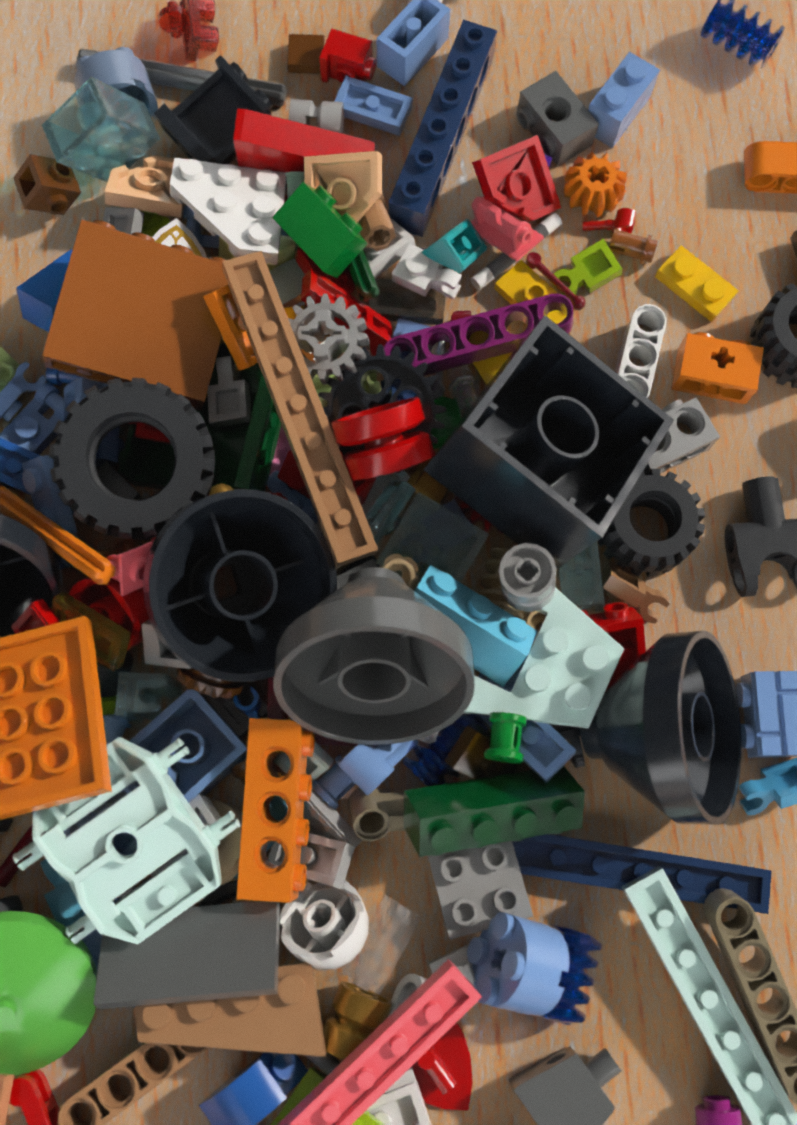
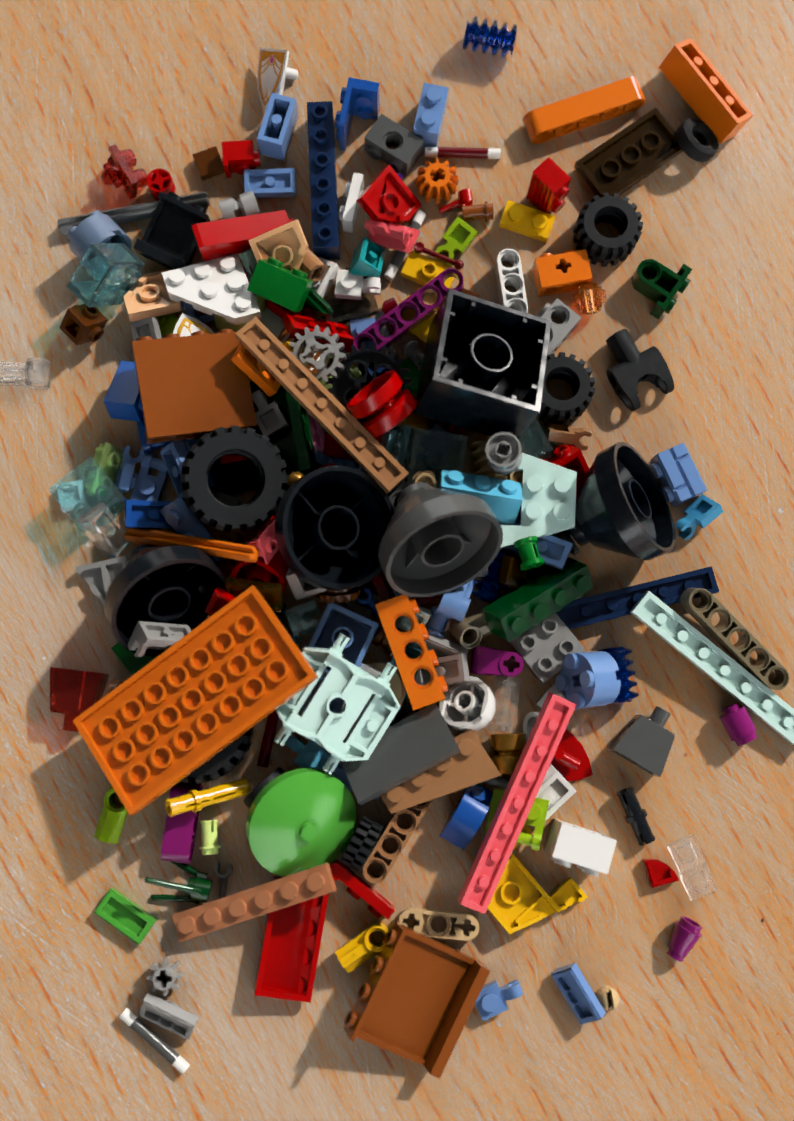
camera: 25 degrees left, 5 degrees up
(77, 1065) = (361, 843): none -> black tyre
(229, 45) = (157, 179): none -> red wheel
(387, 870) = (490, 662): none -> magenta piece
(461, 179) = (349, 212): none -> white plate
(532, 42) = (358, 99): none -> blue bracket
(645, 164) = (459, 152): none -> dark red bar
(742, 416) = (589, 298): none -> clear orange gear
(744, 246) = (548, 187): none -> red brick

